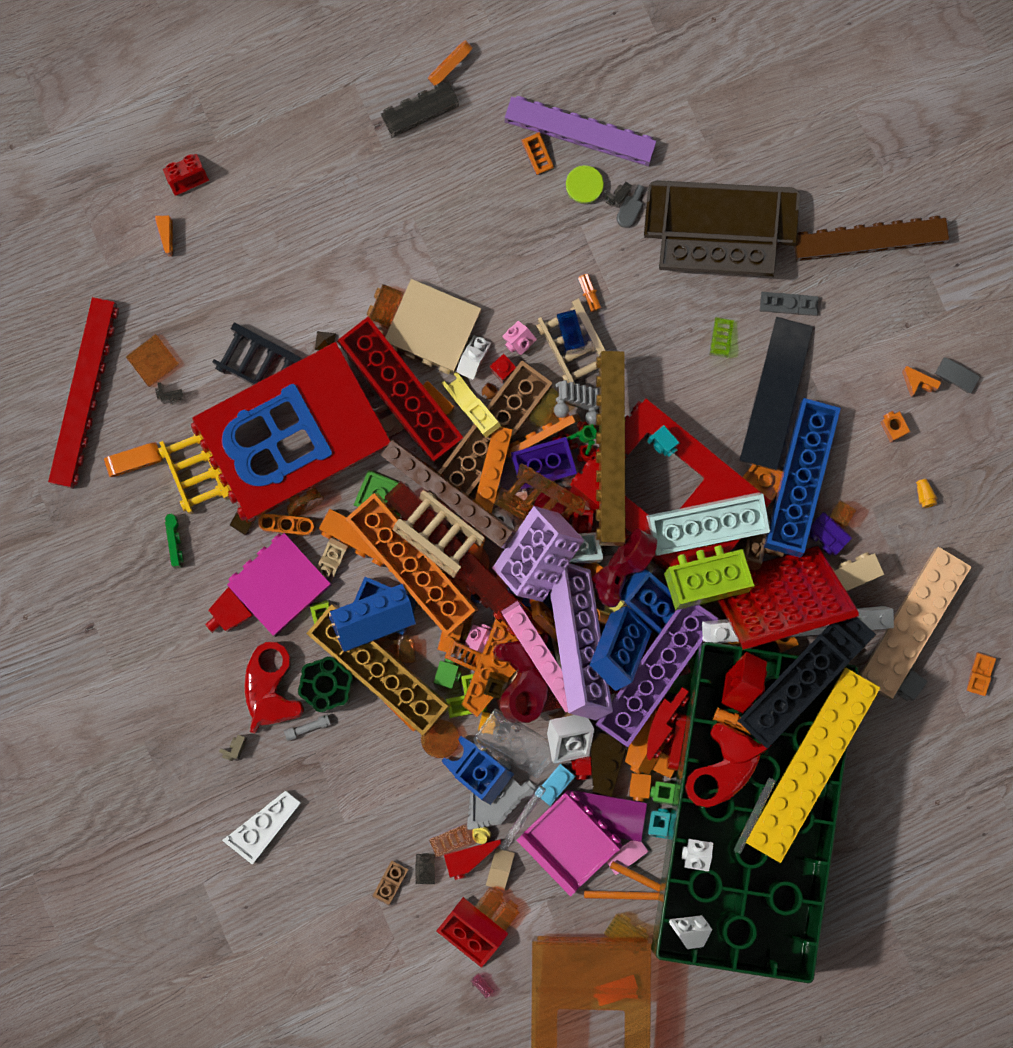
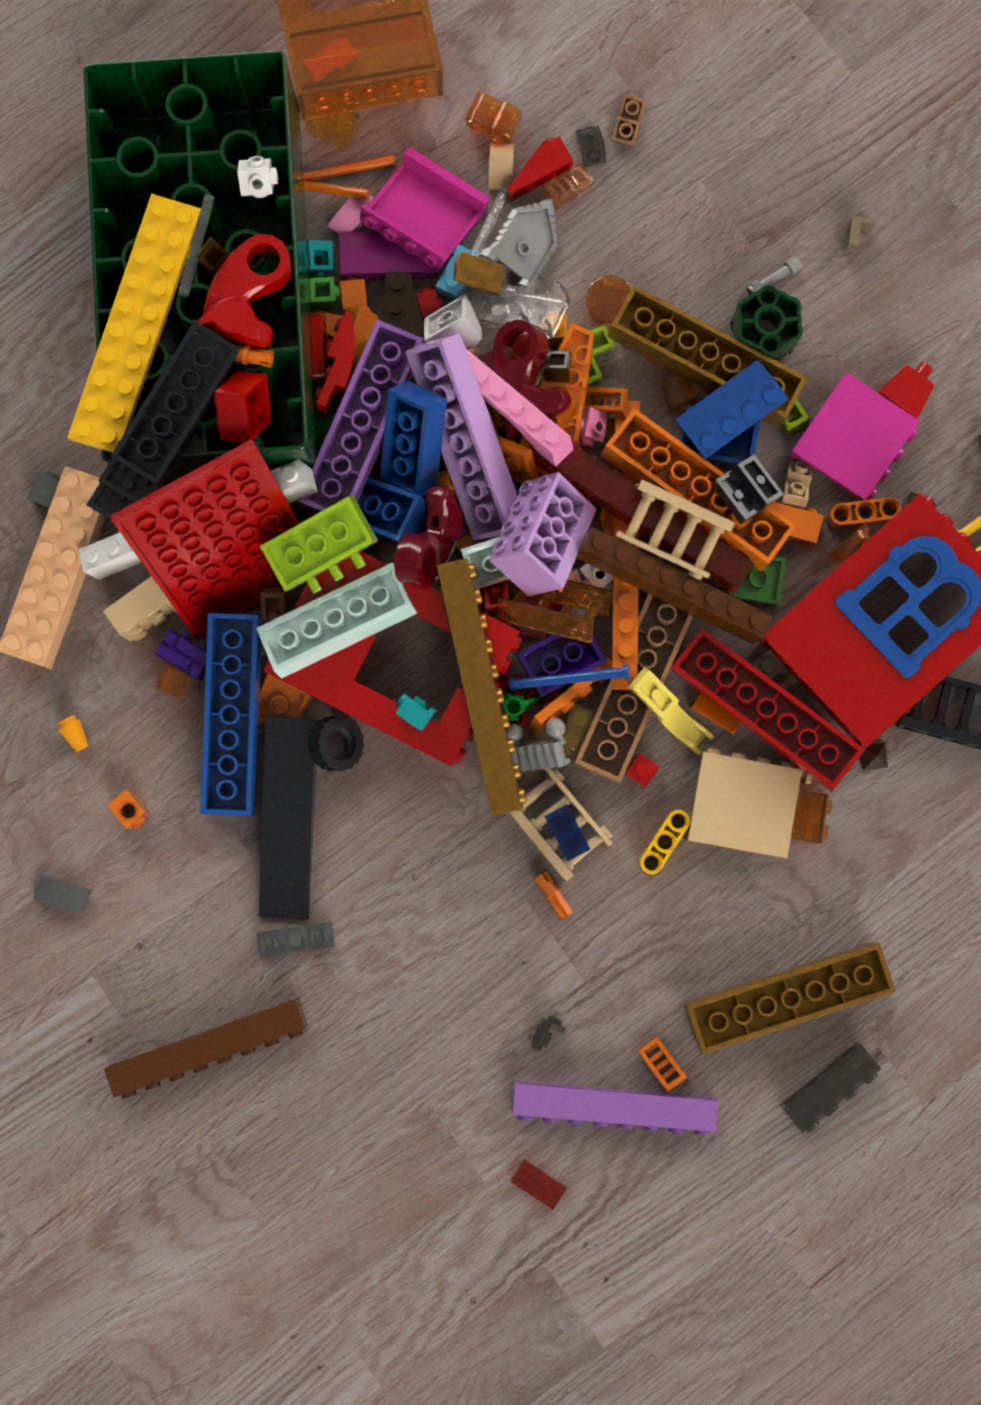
camera: 170 degrees right, 0 degrees up
(257, 832) = (801, 144): white wing -> none
(260, 690) = (844, 310): red animal -> none
(376, 553) = (747, 489): none -> black slope
(434, 179) = (789, 997): none -> pearl gold brick
(447, 674) = (620, 374): bright green brick -> none
(450, 63) = (806, 1160): orange beam -> none
(472, 932) = (517, 84): red slope -> none
(473, 357) = (682, 777): white slope -> none
(479, 771) = (554, 259): blue brick -> none
(481, 835) = (532, 196): light yellow plate -> none
(482, 985) = (491, 28): clear pink pin -> none
(489, 390) = (651, 739): dark orange hinge -> none
(503, 304) = (674, 835): none -> yellow beam
(518, 338) = (630, 813): bright pink brick -> none
(540, 775) = (478, 273): none -> pearl gold slope
(542, 444) = (515, 684): none -> blue bar
(584, 184) = (592, 1036): lime tile -> none
(630, 208) = (525, 1018): dark grey piece -> none
(647, 89) = (538, 1184): none -> clear red plate
(692, 930) = (247, 92): white slope -> none
(720, 226) = (403, 1019): dark brown slope -> none
(720, 352) = (363, 876): clear neon green slope -> none
(739, 444) = (353, 743): none -> black tyre
(744, 803) = (212, 255): none -> dark brown slope
(914, 378) = (115, 875): orange slope -> none

